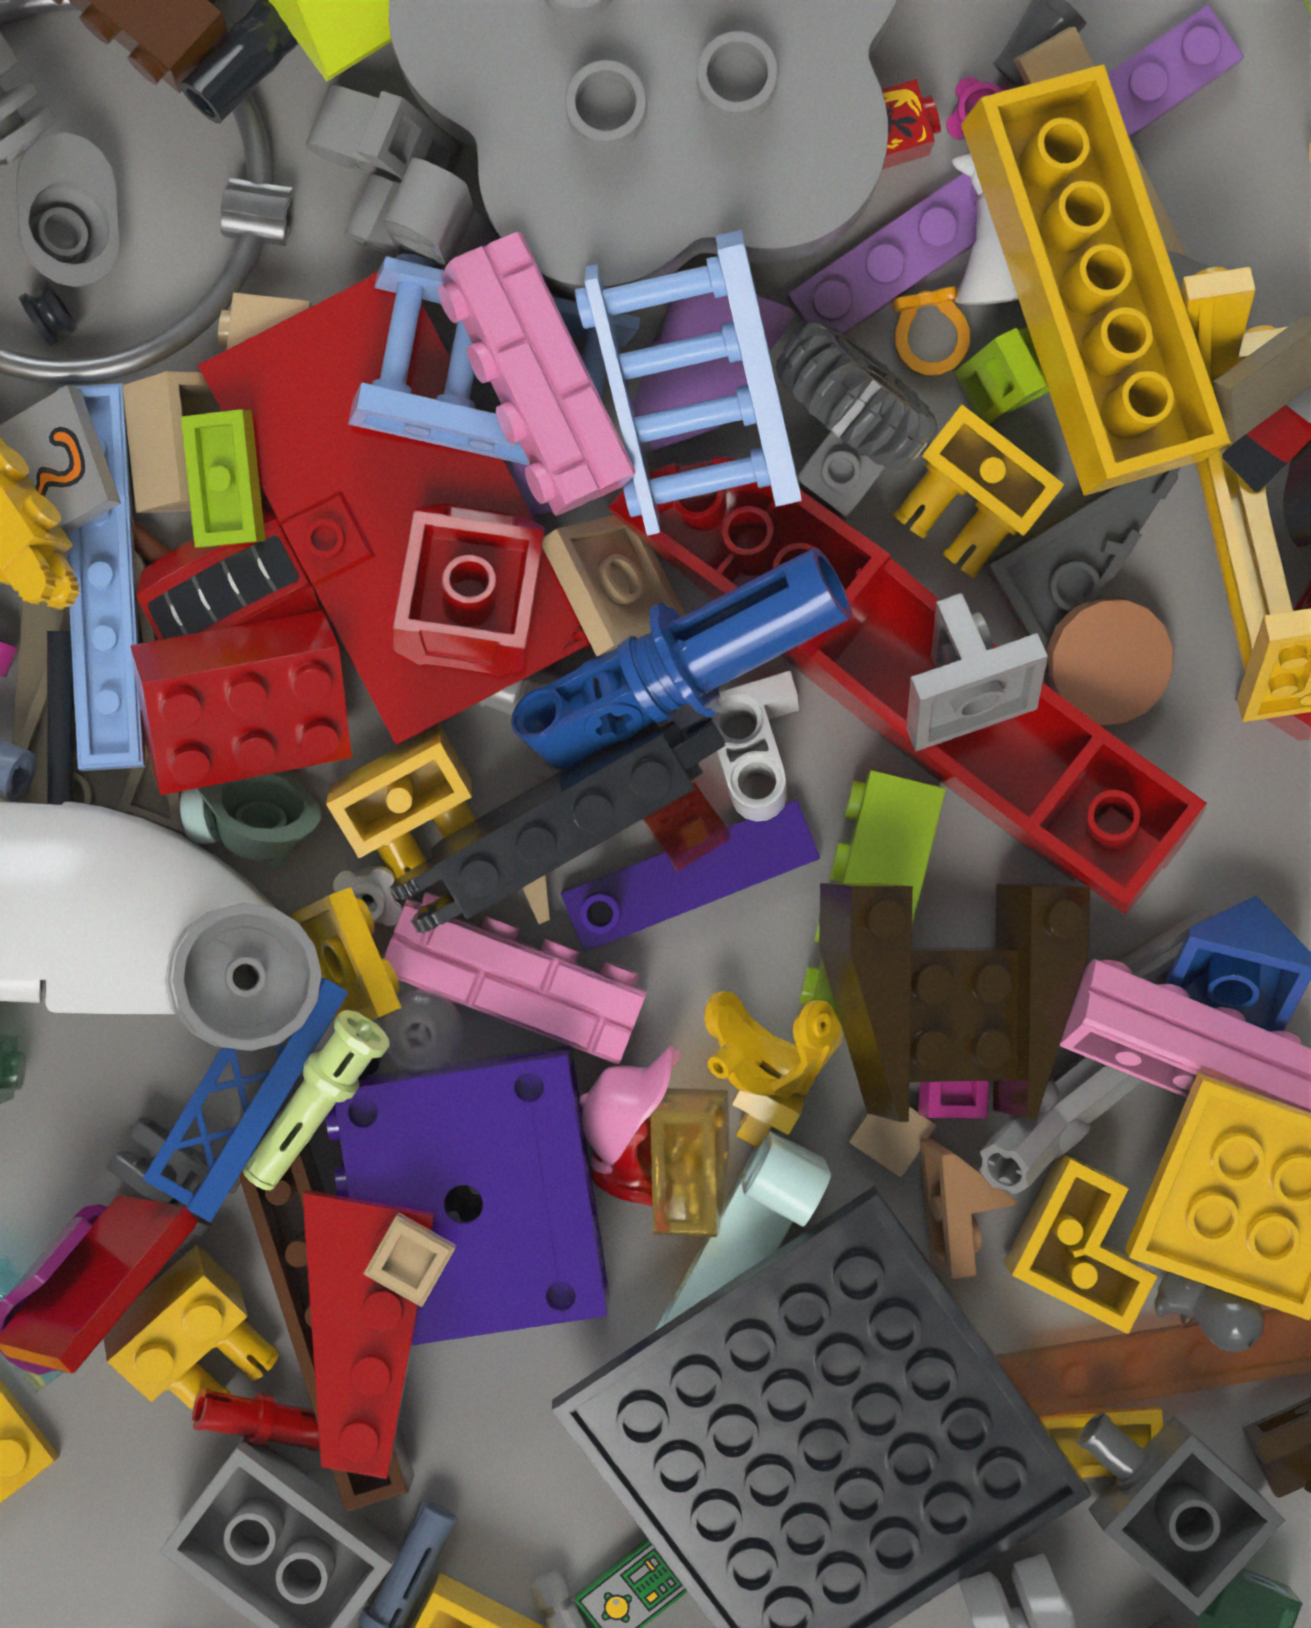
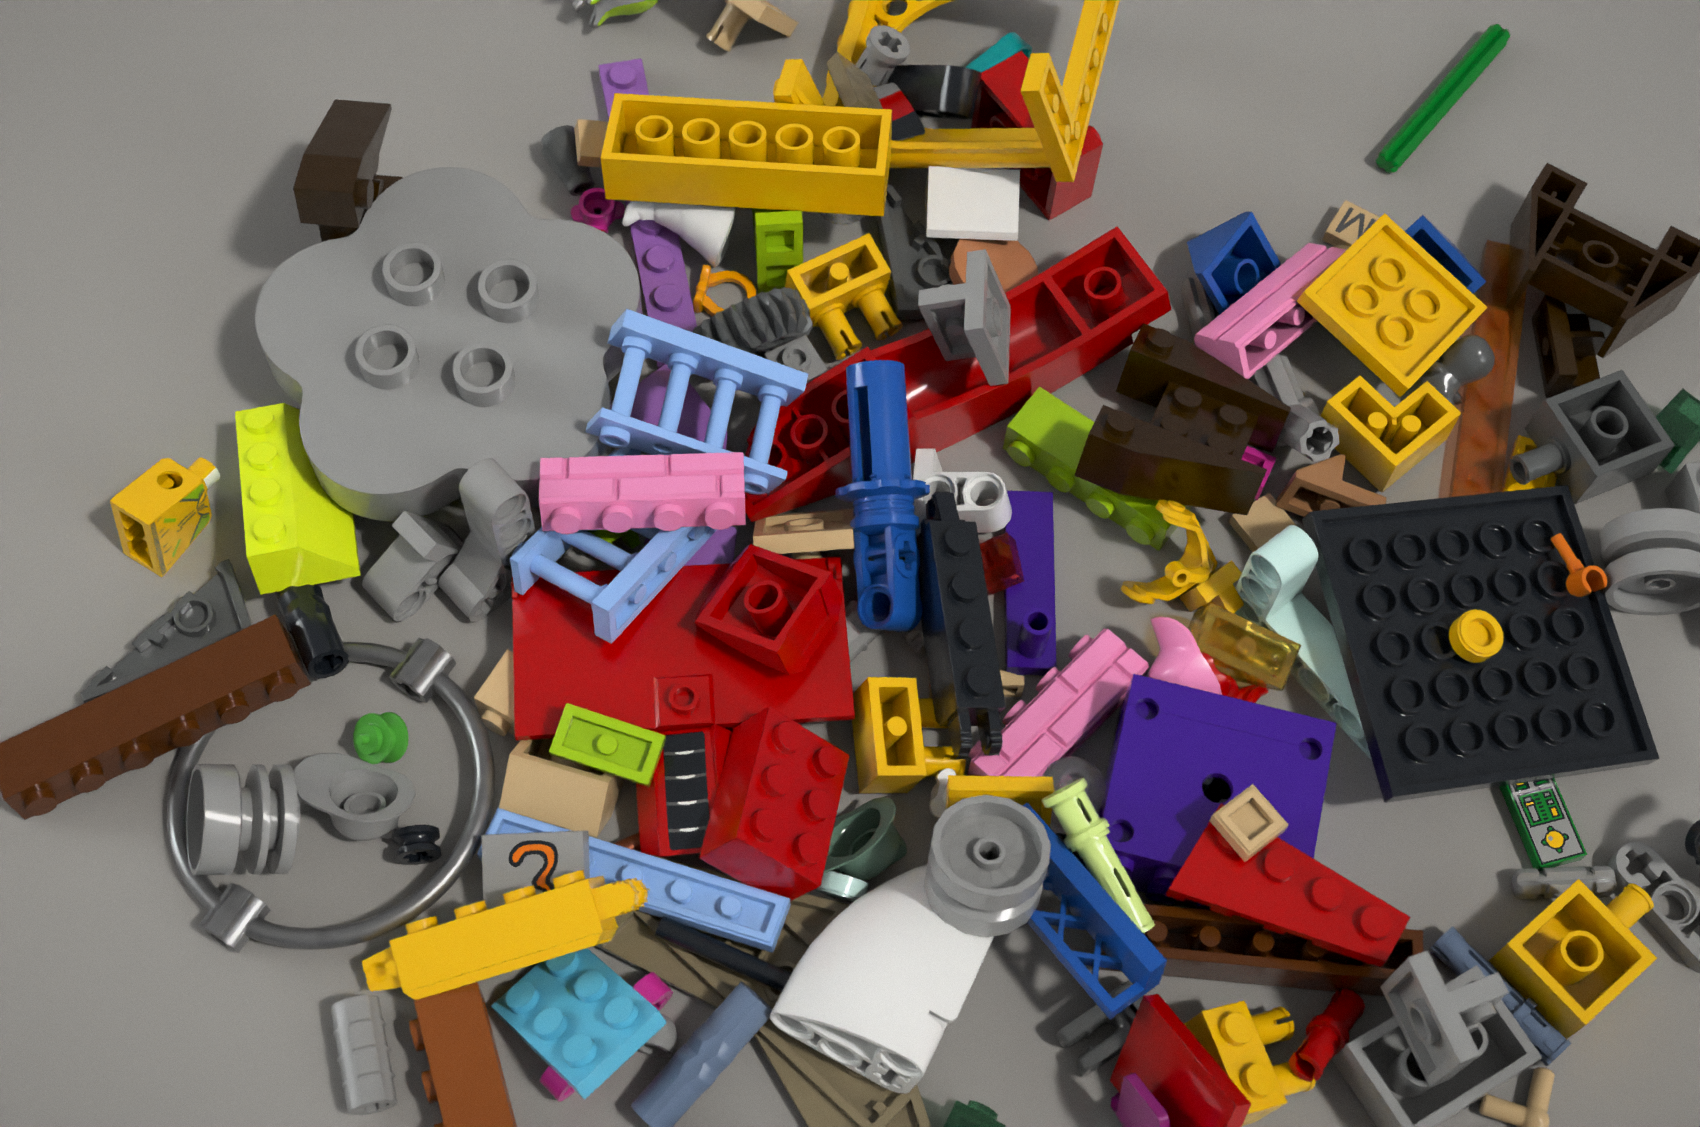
camera: 70 degrees left, 25 degrees down
(152, 207) = (380, 738): none -> bright green wheel
(283, 1546) = (1440, 1020): none -> light grey bracket
(809, 1445) = (1476, 636): none -> yellow tile
(963, 1543) = (1581, 579): none -> orange hand
(1178, 596) = (972, 203): none -> white slope

